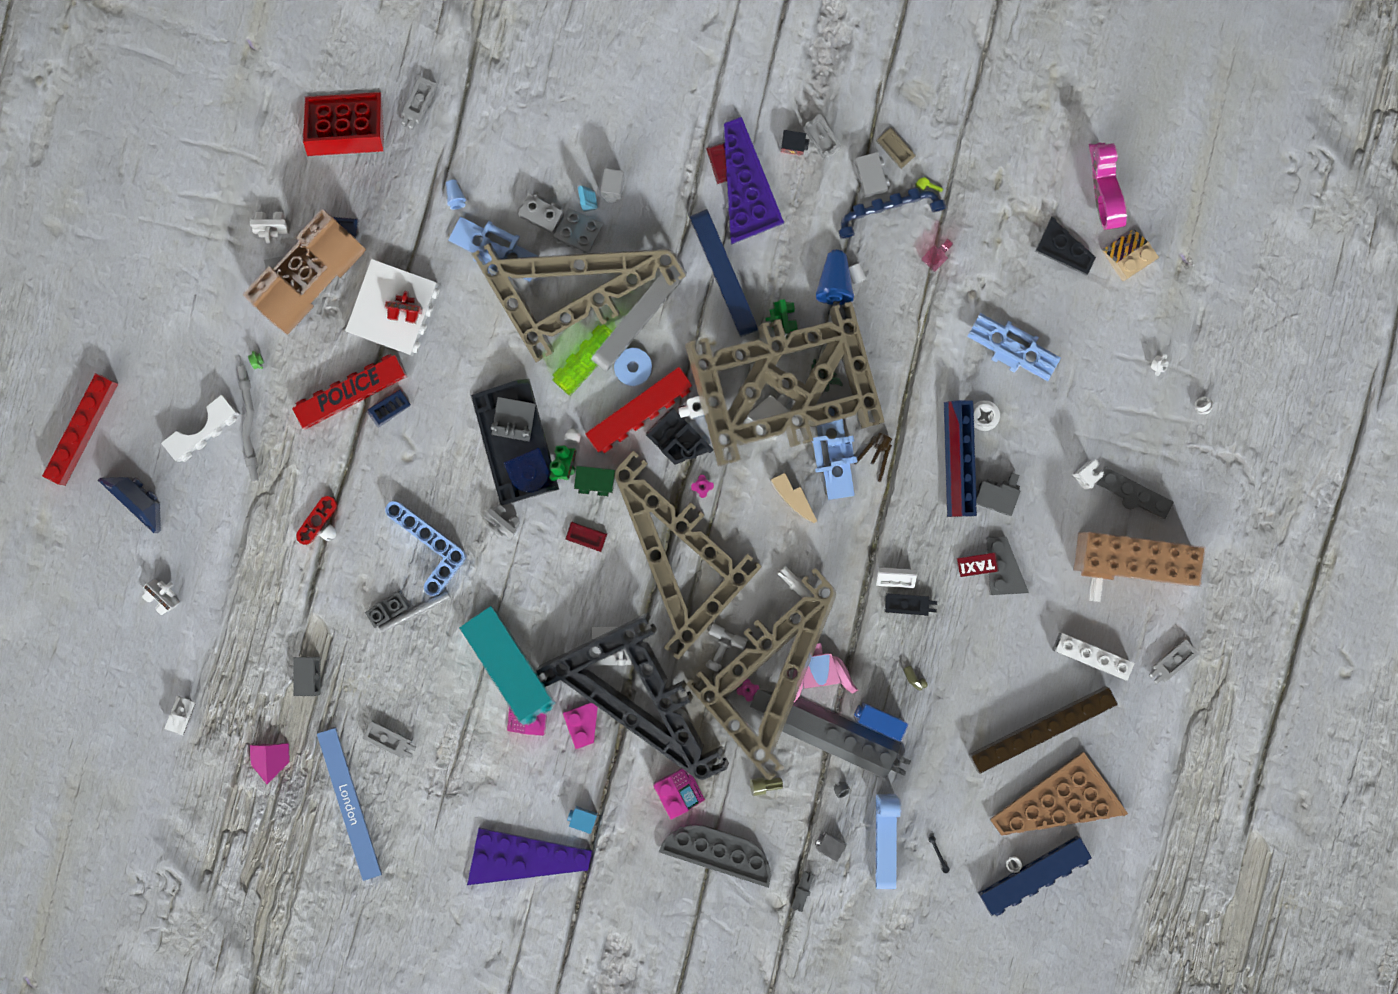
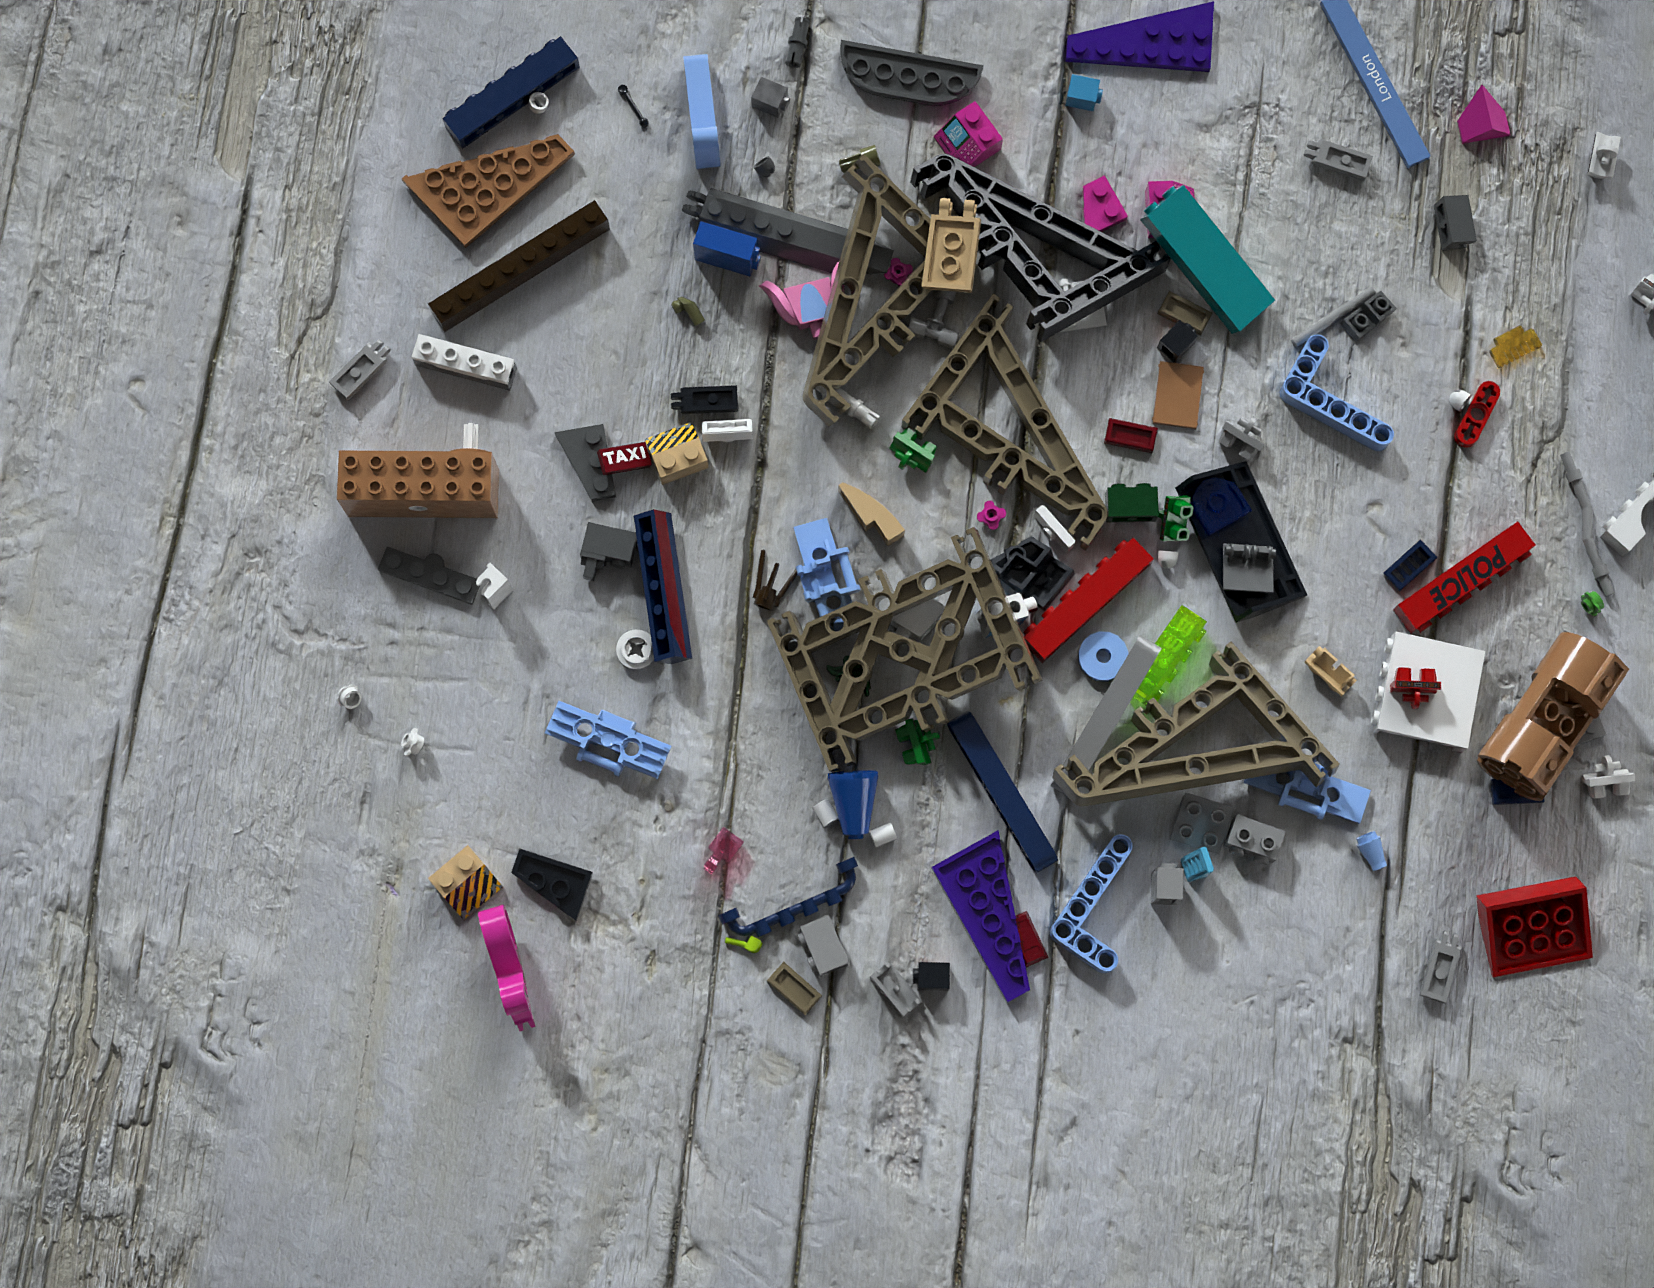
camera: 175 degrees right, 10 degrees down
(278, 577) = (1510, 340): none -> clear yellow piece
(468, 337) = (1338, 679): none -> tan hinge
(529, 629) = (1178, 308): none -> dark tan tile
(538, 606) = (1177, 341): none -> black brick
(544, 565) = (1178, 395): none -> medium nougat piece
(657, 468) = (1053, 529): none -> white plate
(671, 181) = (1088, 902): none -> light blue beam
(706, 695) = (952, 248): none -> tan tile
(758, 541) = (910, 452): none -> green hips
(816, 252) = (883, 834): none -> white hinge
(937, 565) = (677, 453): none -> tan slope

